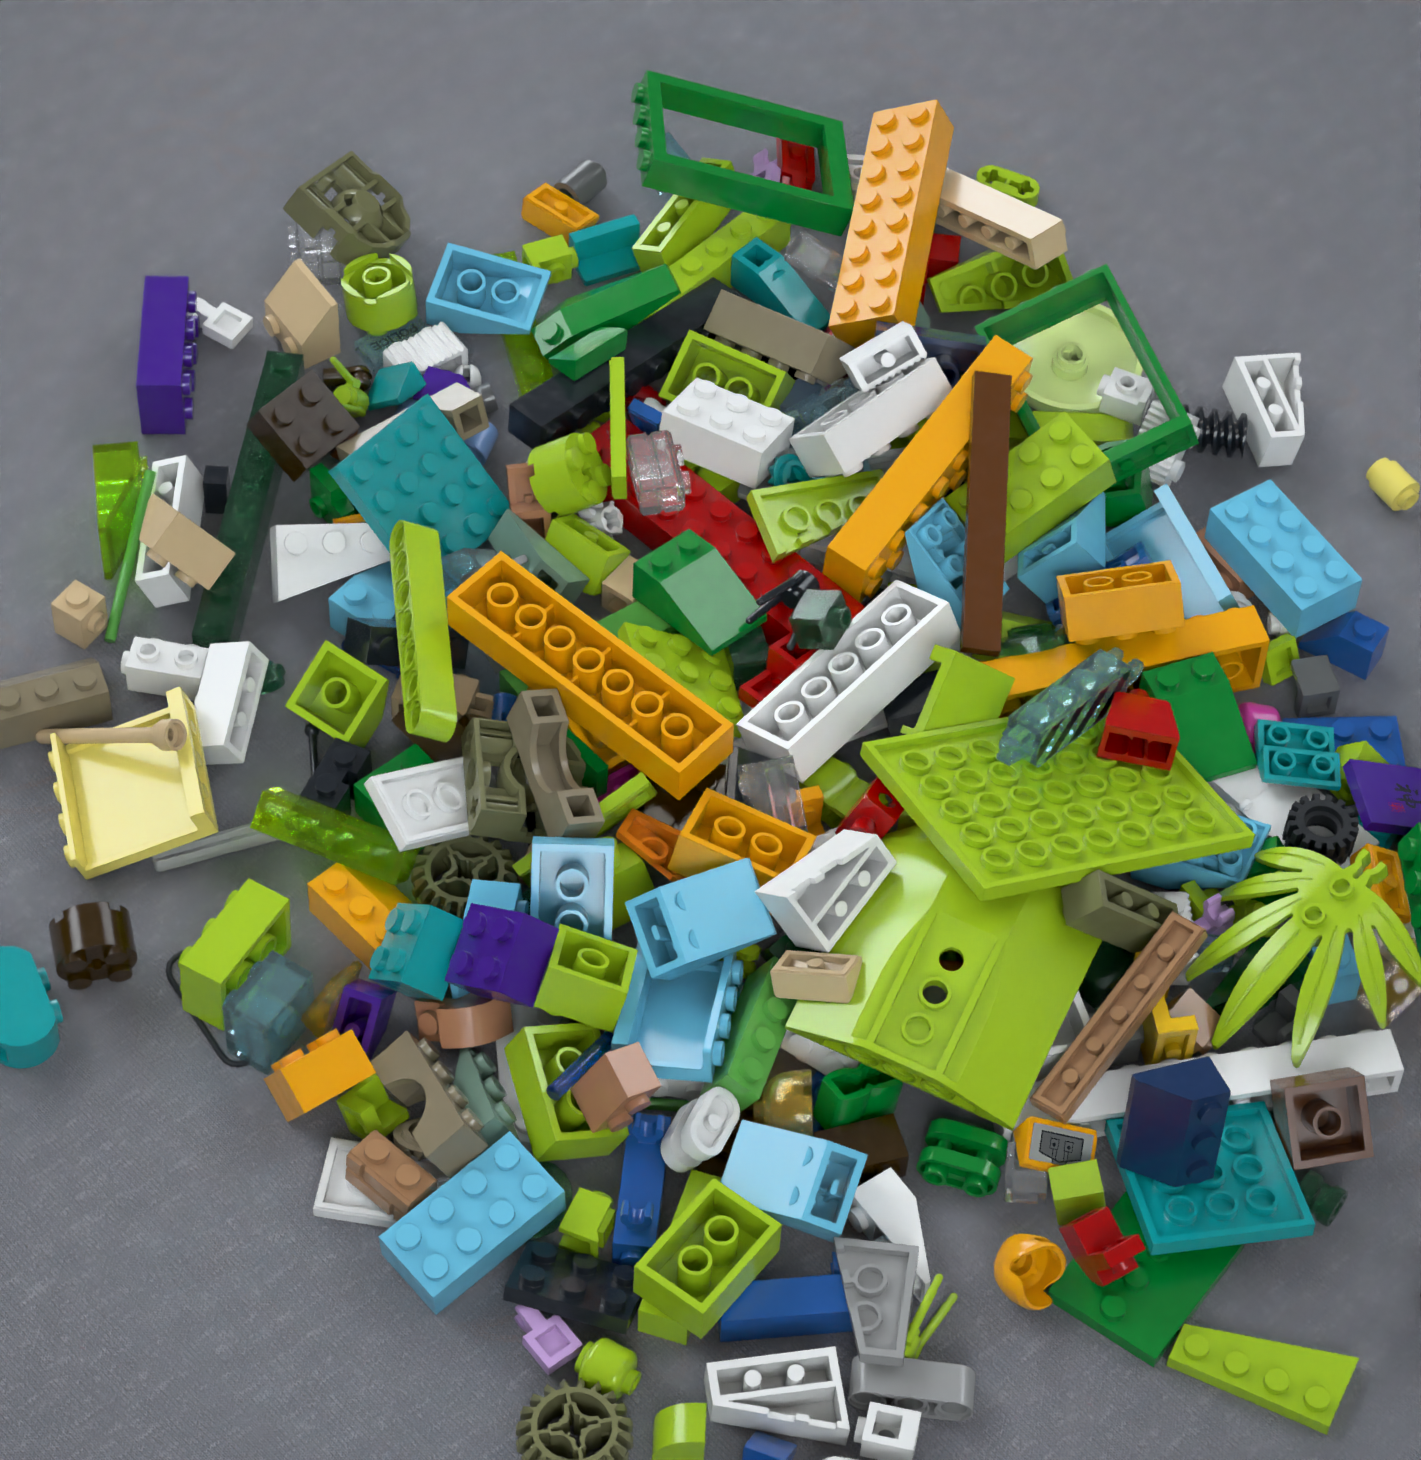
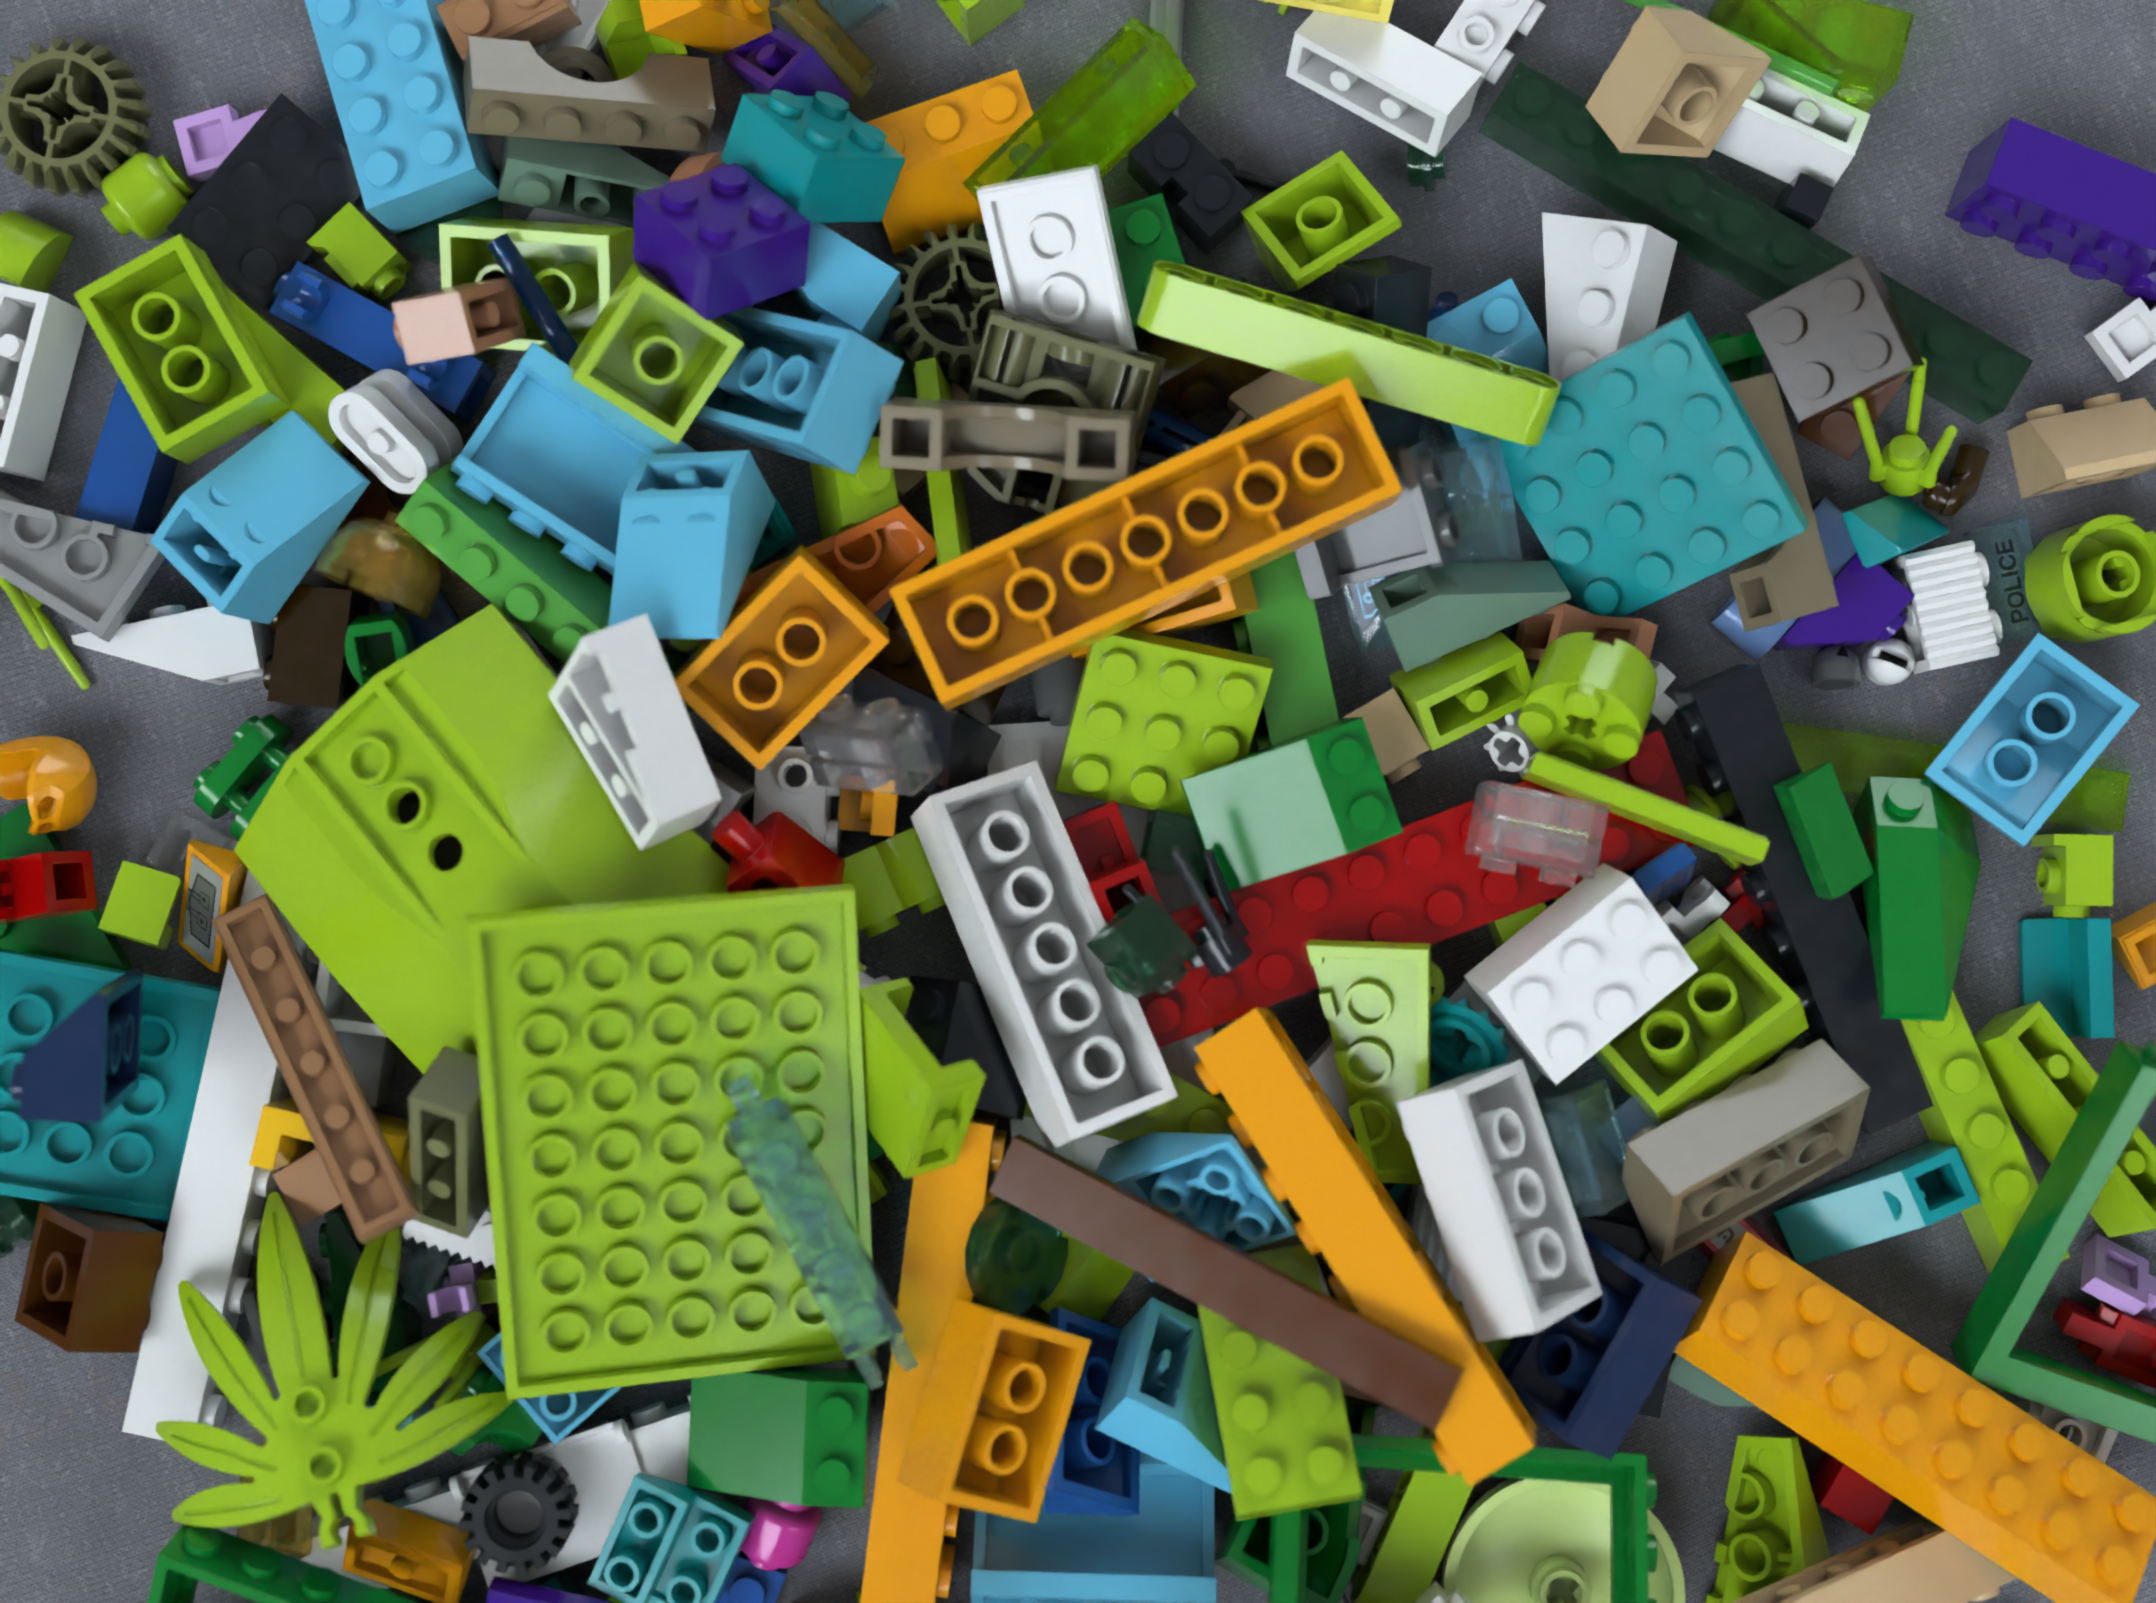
camera: 115 degrees right, 35 degrees up
(814, 259) = (1900, 1277): clear brick -> none
(816, 976) = (522, 668): tan slope -> none
(883, 356) = (1592, 1261): white brick -> none
(1140, 731) = (760, 1326): red torso -> none

